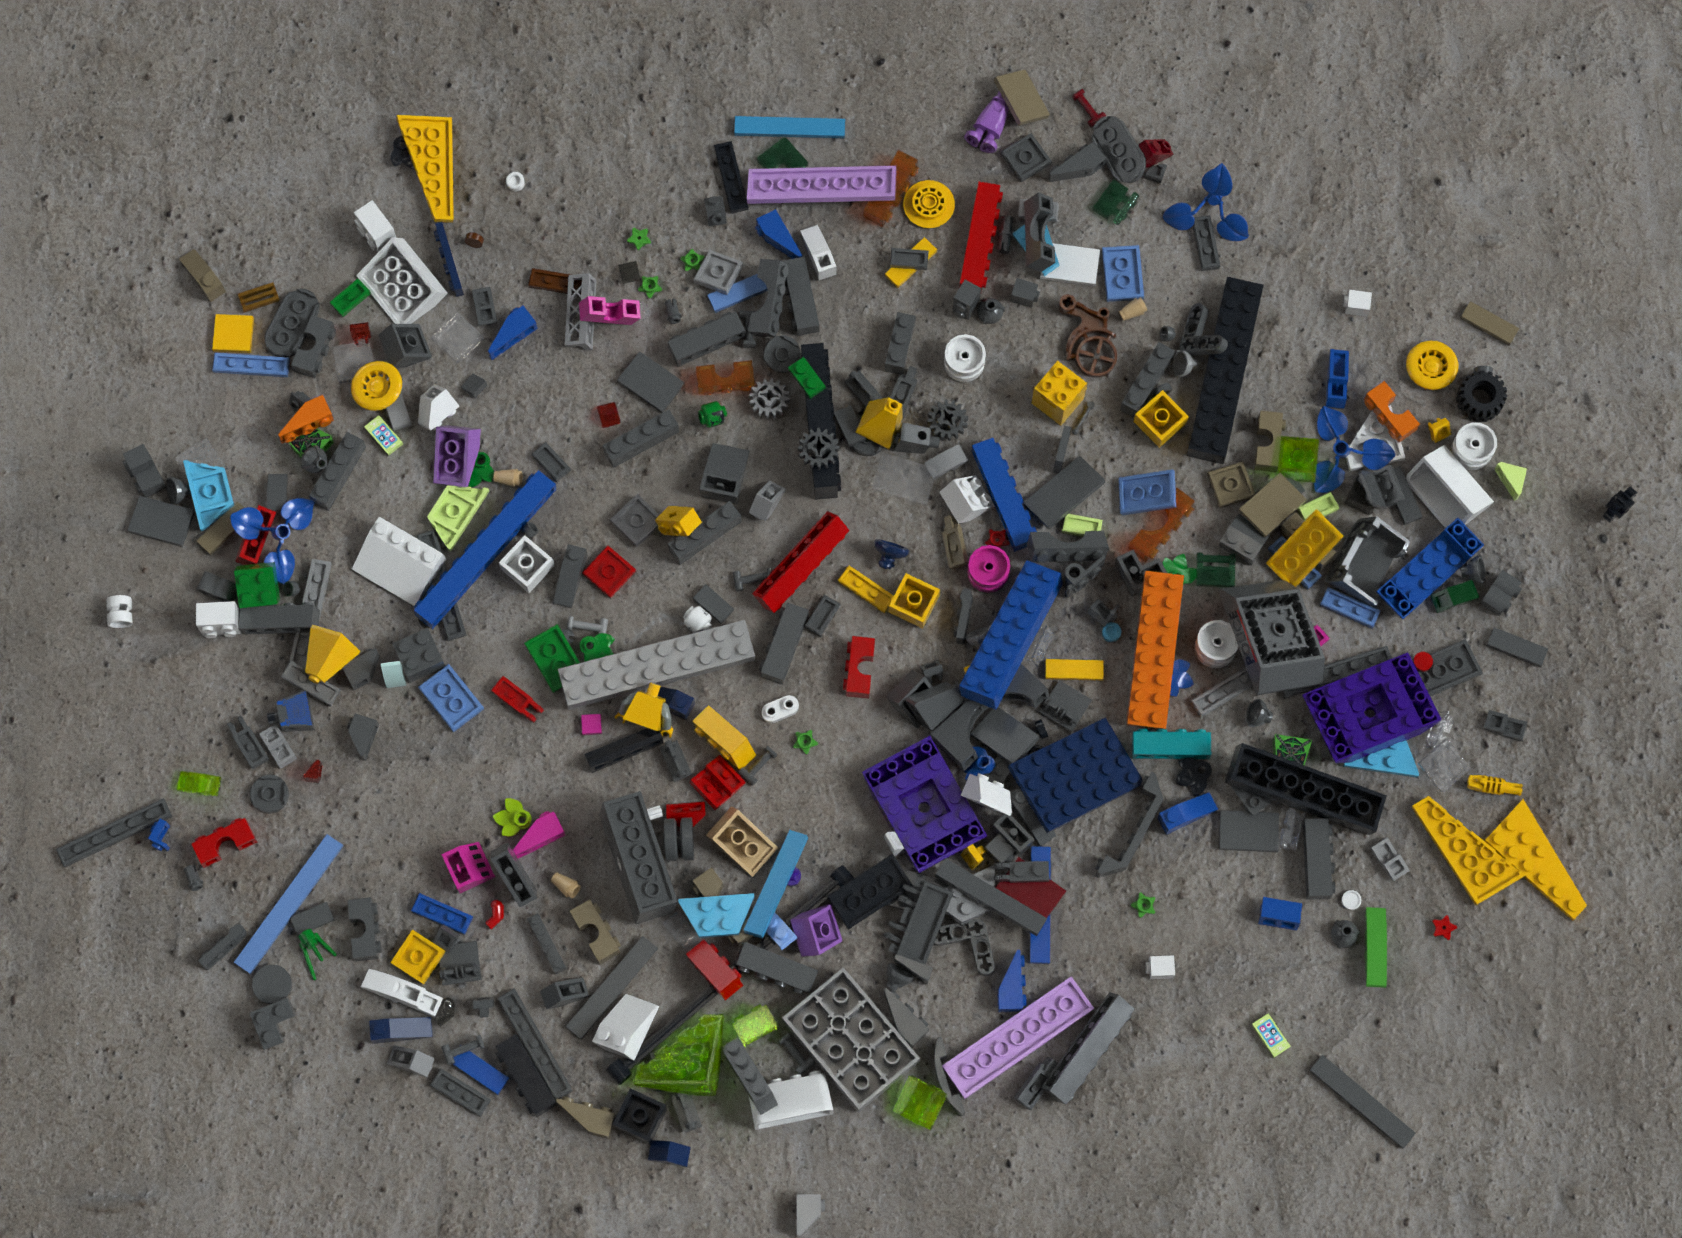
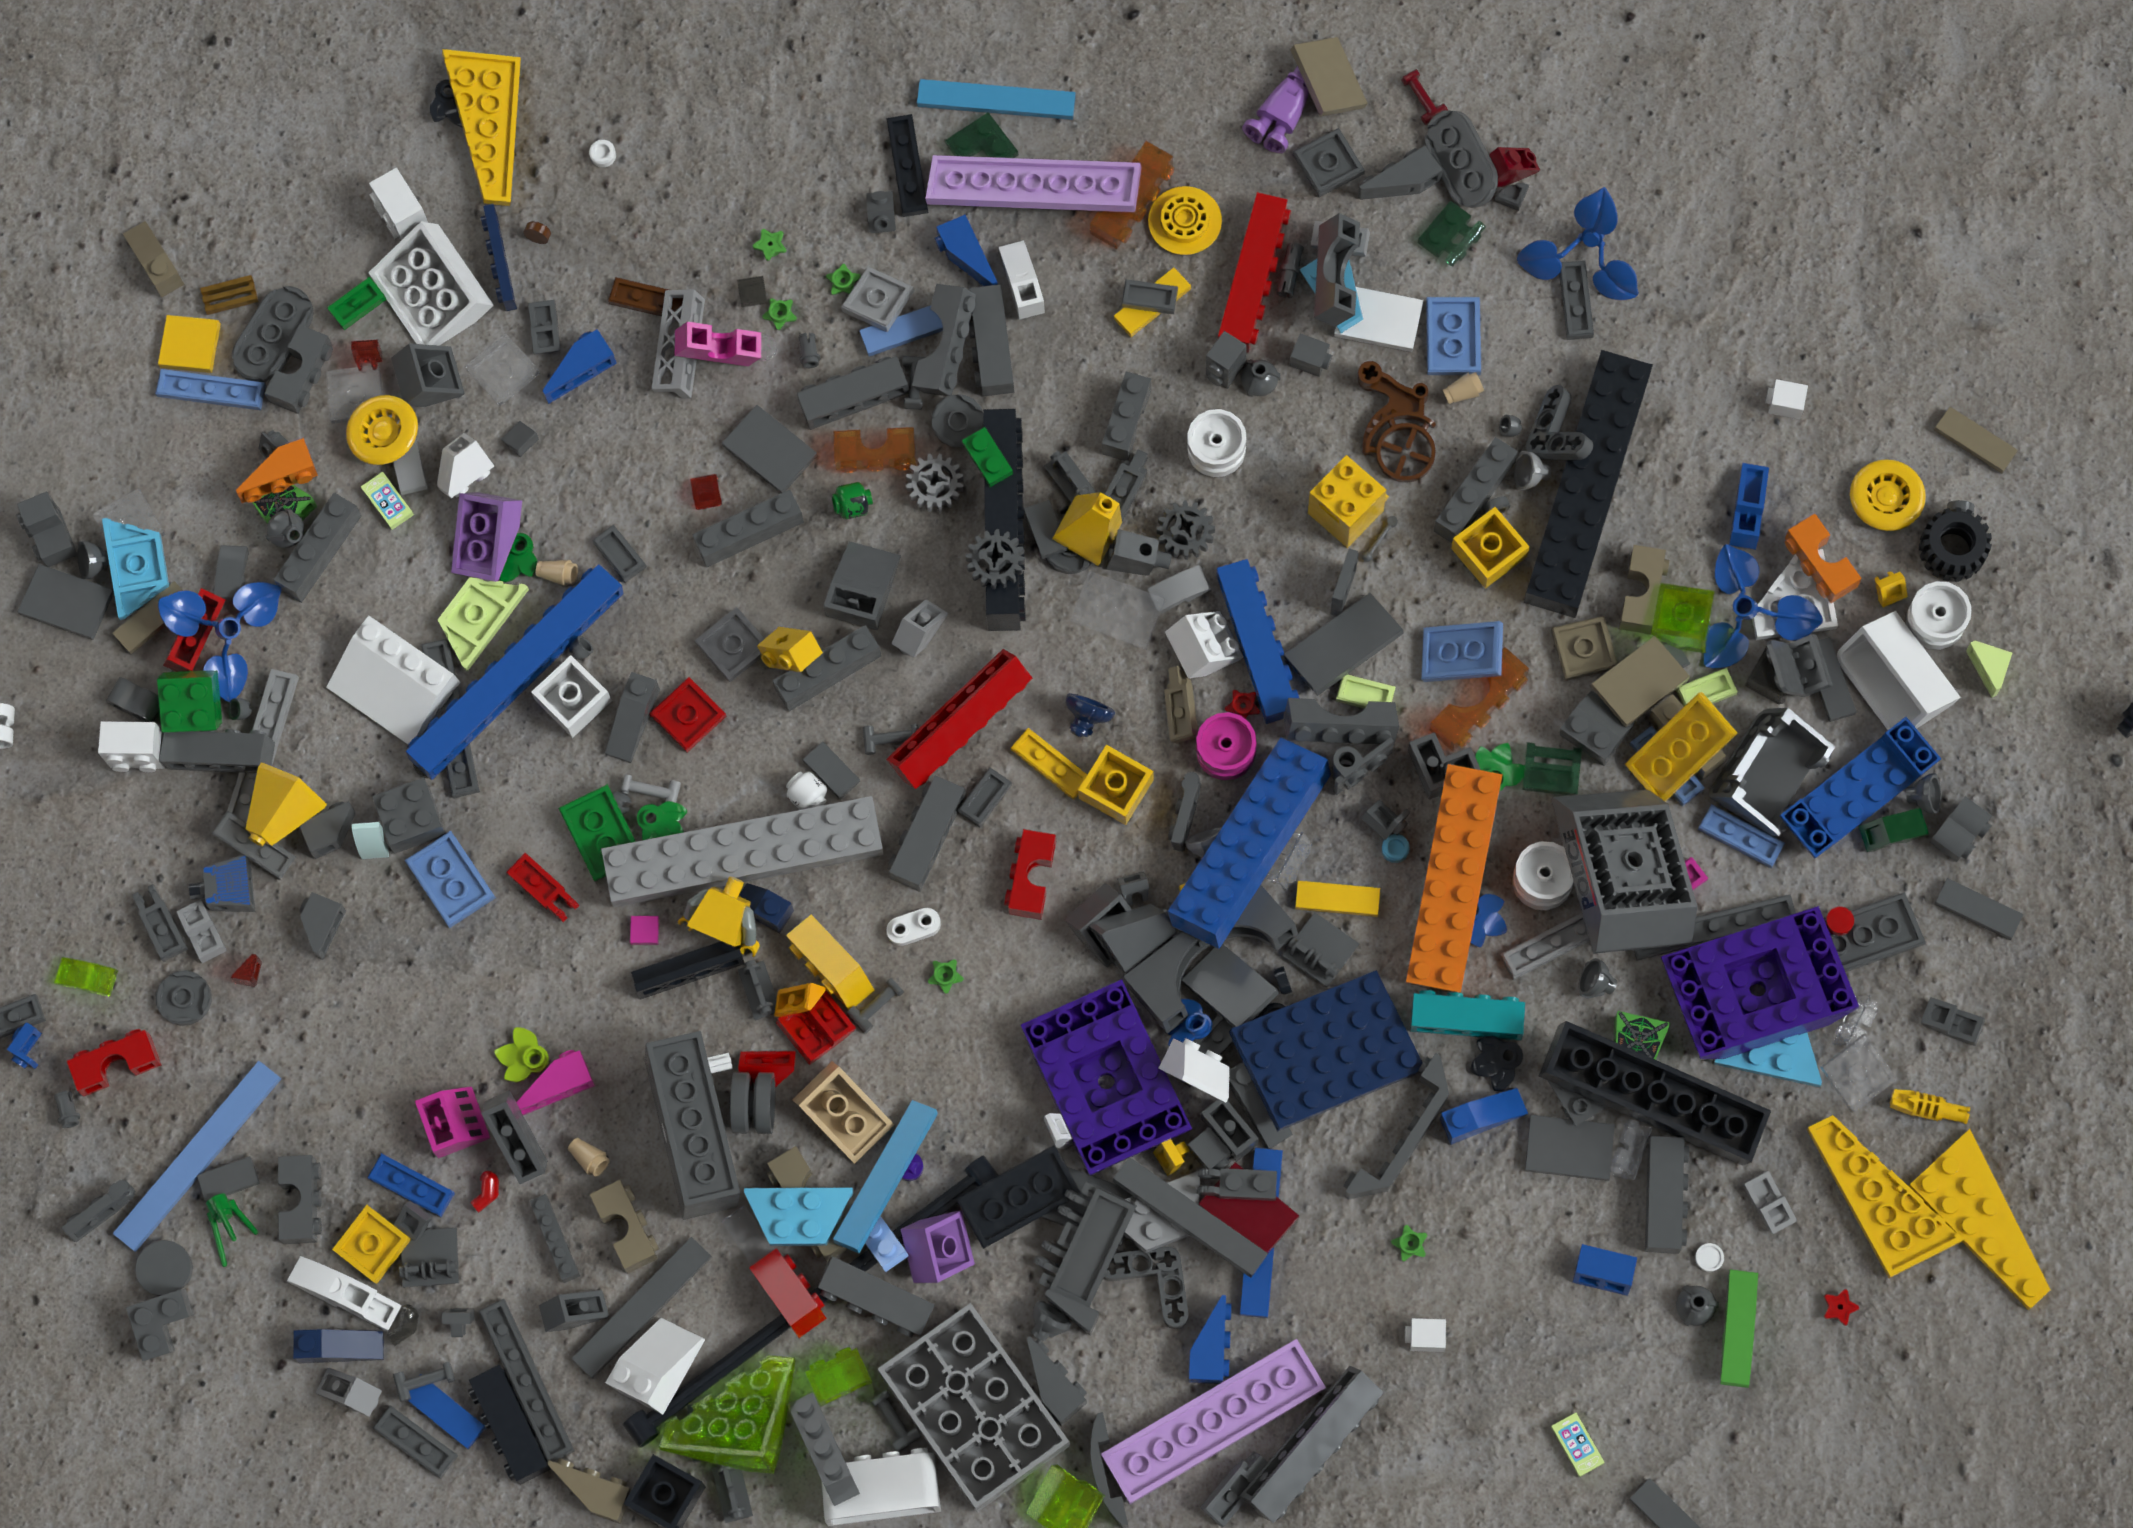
camera: 10 degrees right, 0 degrees up
(704, 764) = (797, 999): none -> light orange slope

